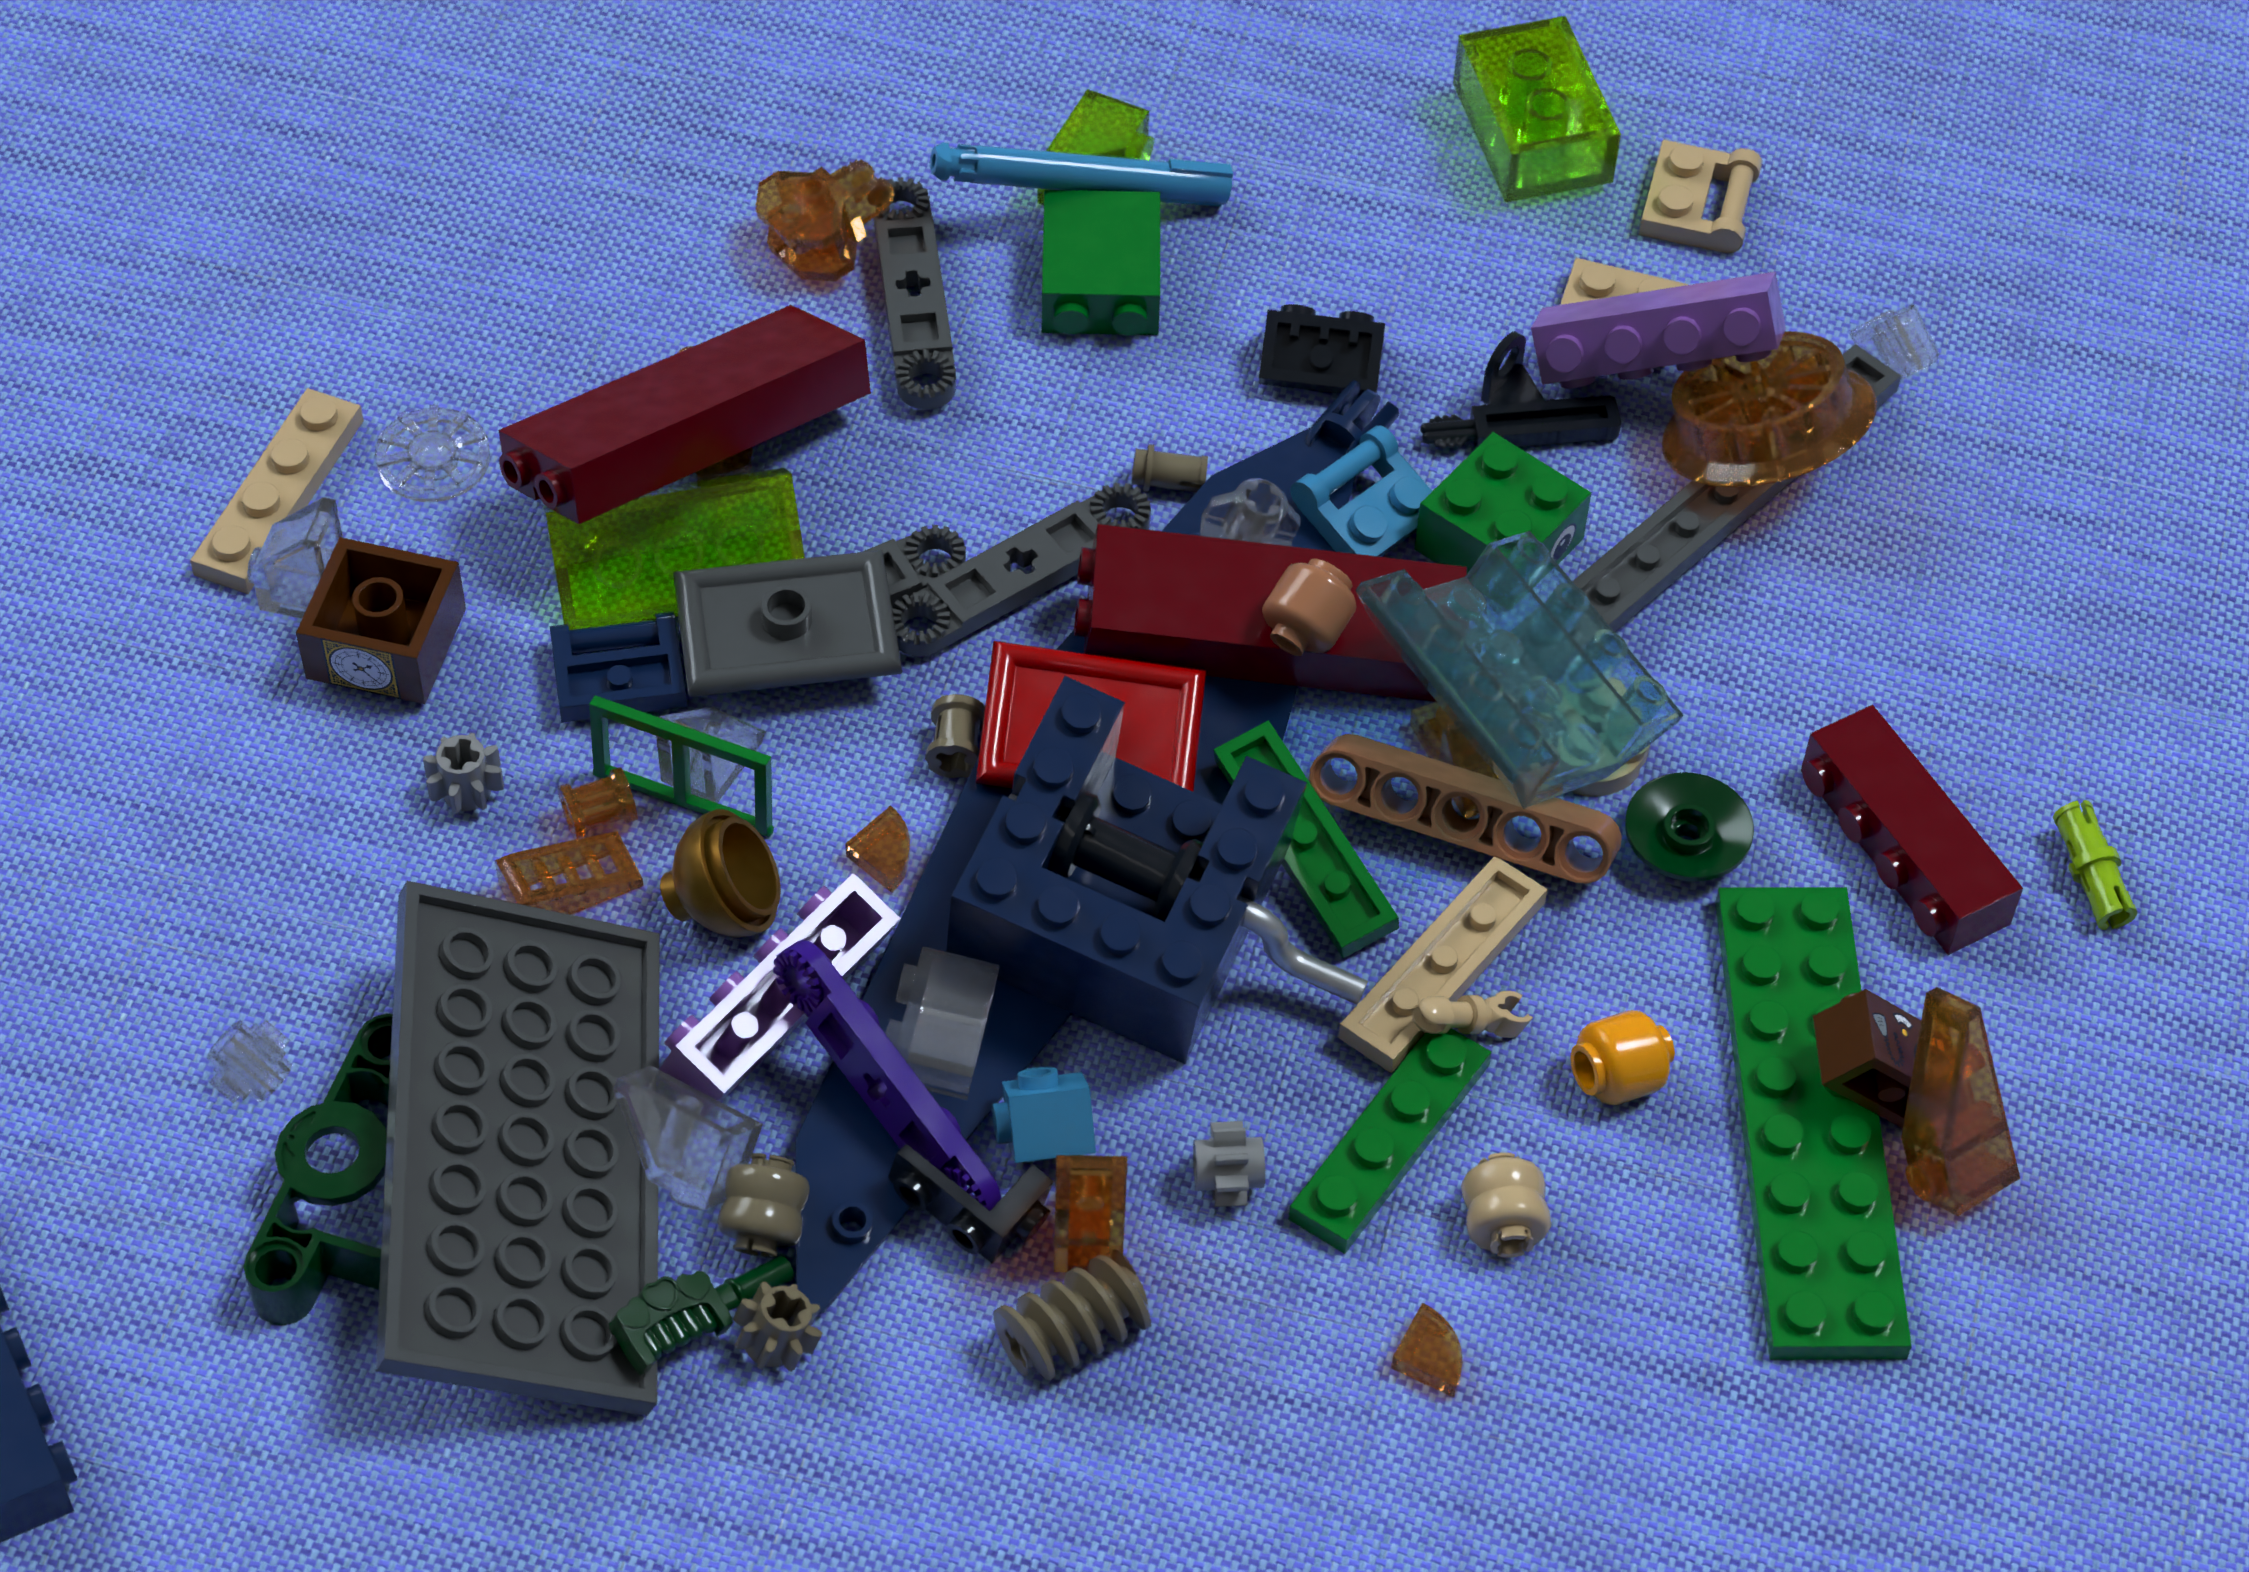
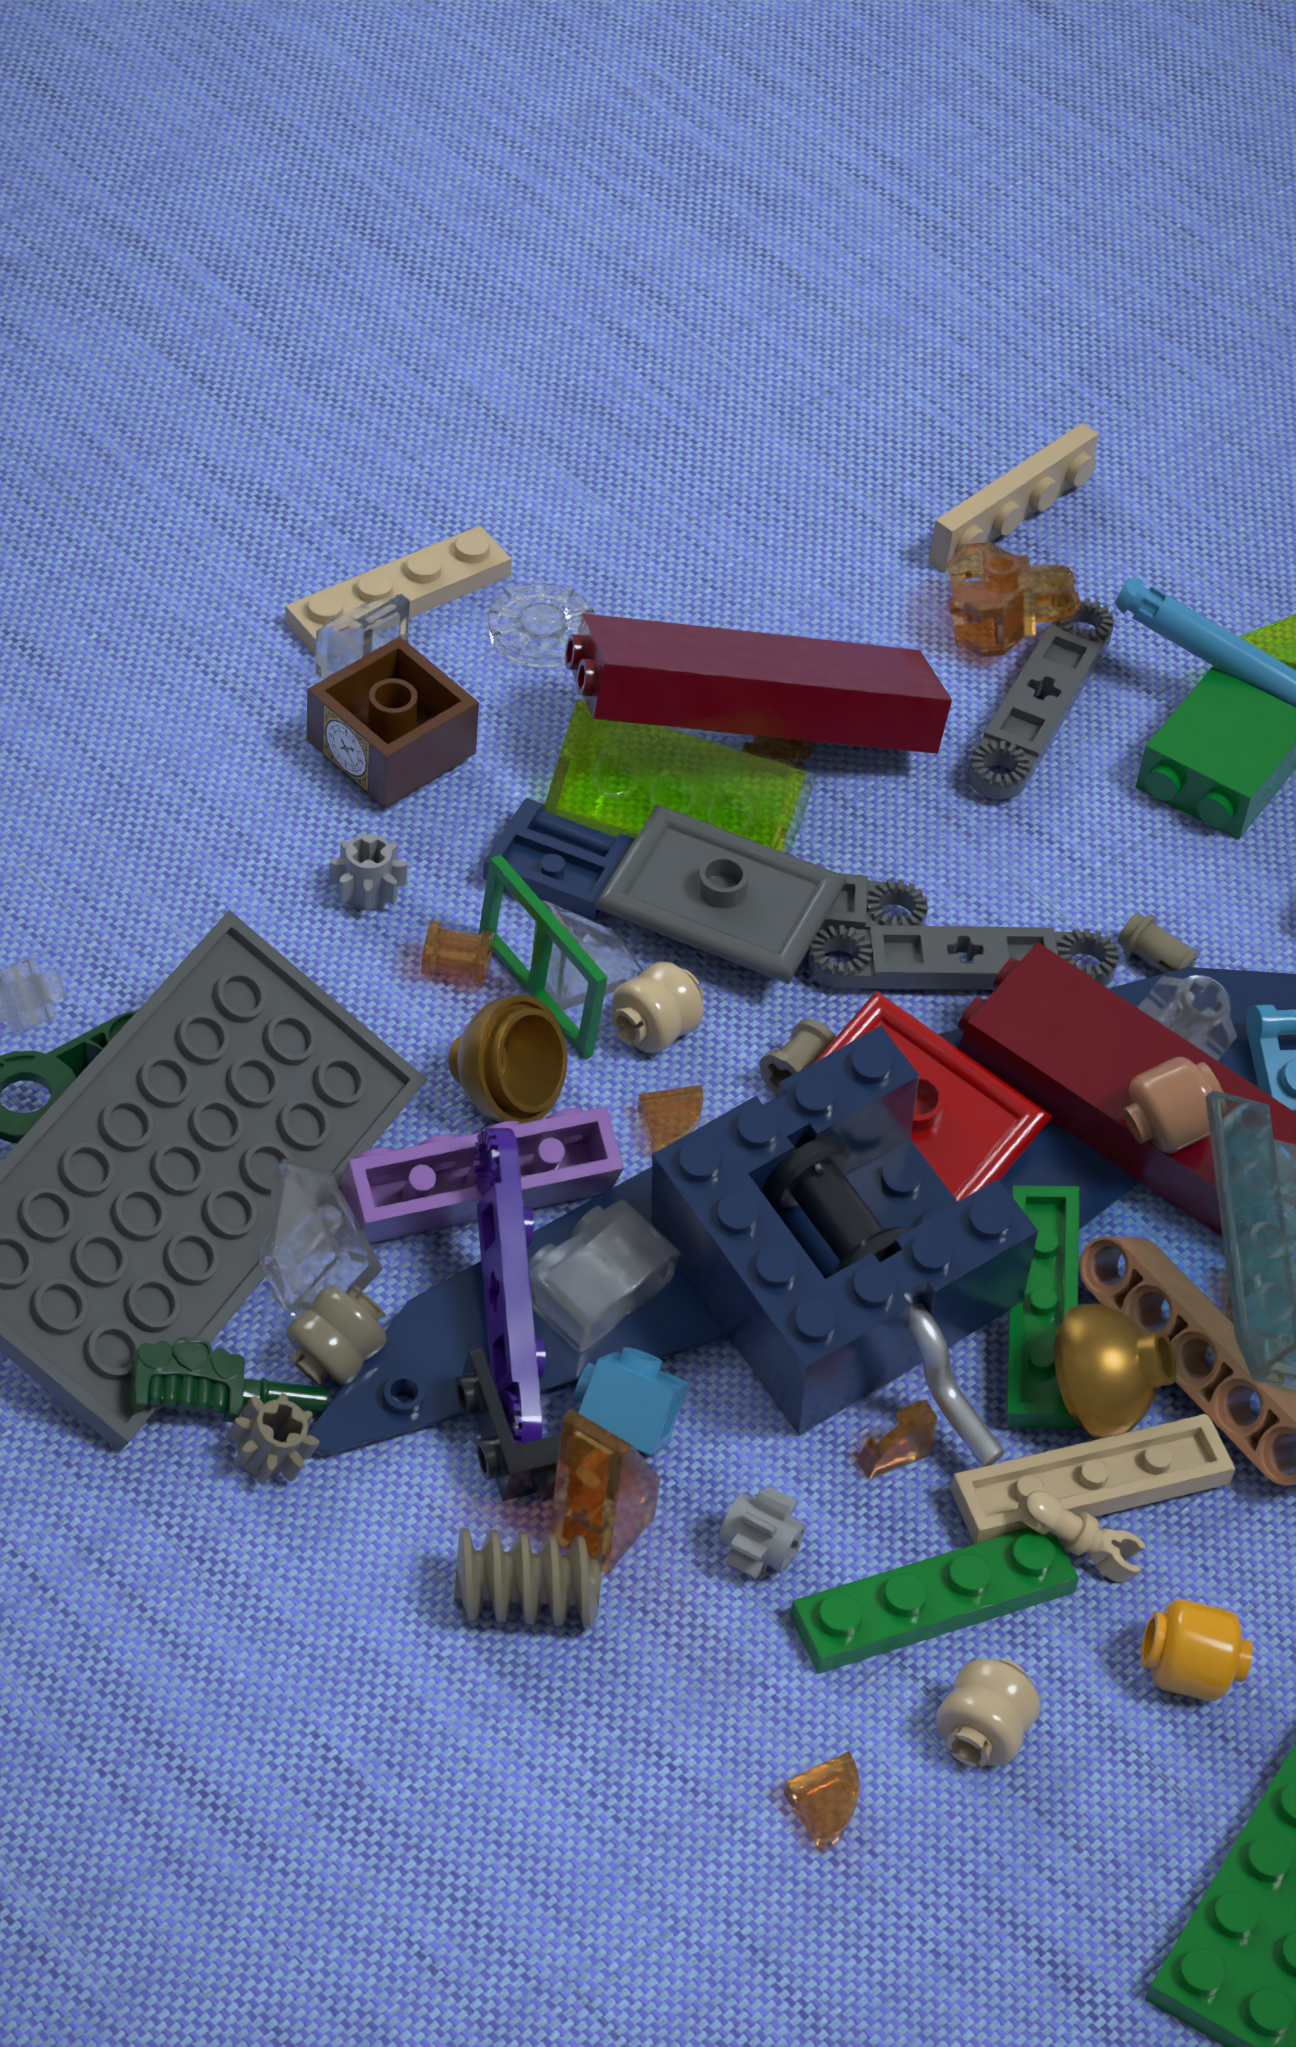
camera: 30 degrees right, 5 degrees down
(540, 864) = (358, 976): clear orange slope -> none
(755, 121) = (1016, 495): none -> tan plate
(807, 756) = (657, 1007): none -> tan piece
(1283, 1015) = (903, 1444): none -> clear orange tile
(1405, 862) = (1109, 1368): none -> pearl gold piece

